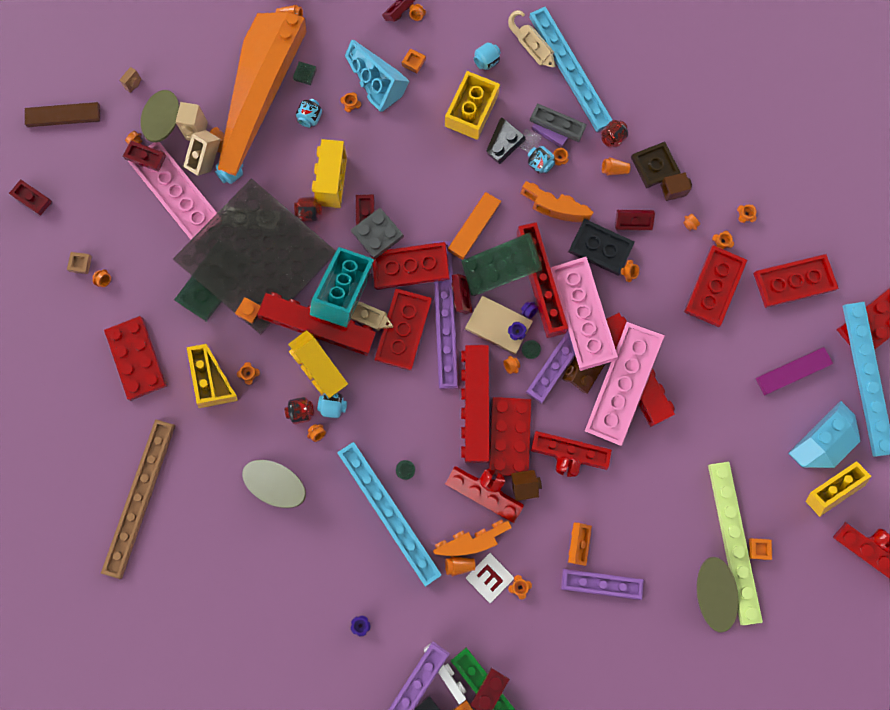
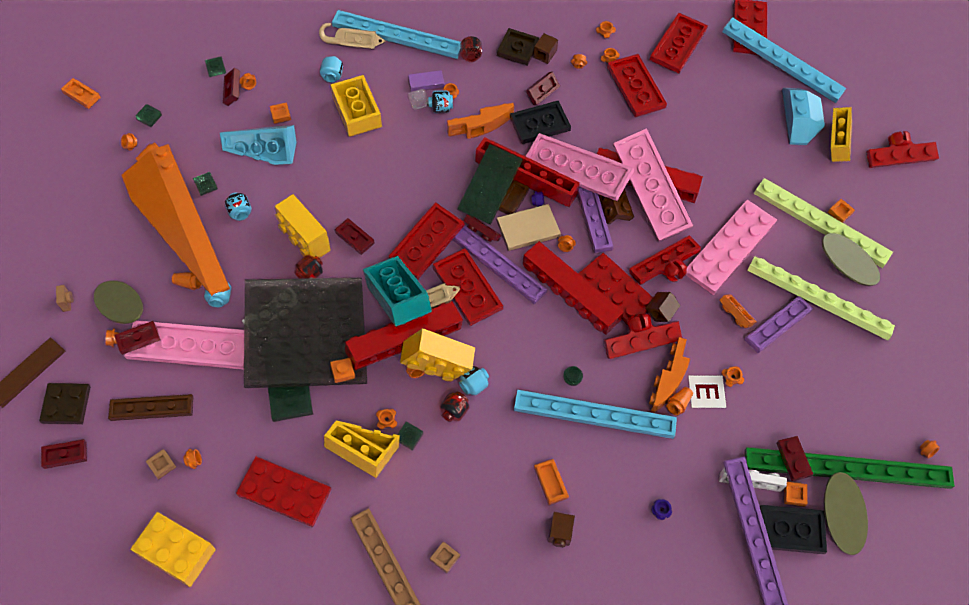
camera: 45 degrees left, 15 degrees down
(30, 330) = (173, 549): none -> yellow brick
(64, 160) = (65, 403): none -> dark brown plate
(112, 215) = (150, 407): none -> reddish brown tile
(185, 507) = (445, 557): none -> medium nougat plate
(190, 119) = (152, 282): tan brick -> none
(201, 152) = (184, 296): tan brick -> none
(249, 400) = (410, 435): none -> clear green plate
(274, 484) = (493, 472): shield -> none
(276, 568) = (561, 529): none -> reddish brown brick
(308, 528) = (551, 481): none -> orange tile
(316, 432) = (483, 410): orange plate -> none
(350, 97) = (258, 172): orange plate -> none
(377, 233) = (380, 239): dark grey plate -> none
(474, 226) = (441, 179): orange tile -> none
(504, 141) = (402, 111): wing -> none
(513, 291) = (513, 197): none -> reddish brown tile
(517, 326) = (546, 212): dark purple plate -> none
(531, 349) = (567, 222): clear green plate -> none
(558, 122) = (426, 71): dark grey tile -> none
(615, 167) = (493, 68): orange cone -> none
(630, 271) = (575, 120): orange plate -> none
(636, 489) = (730, 247): none -> bright pink plate
(658, 599) = (821, 298): none -> yellowish green plate
(794, 371) = (737, 94): magenta tile -> none

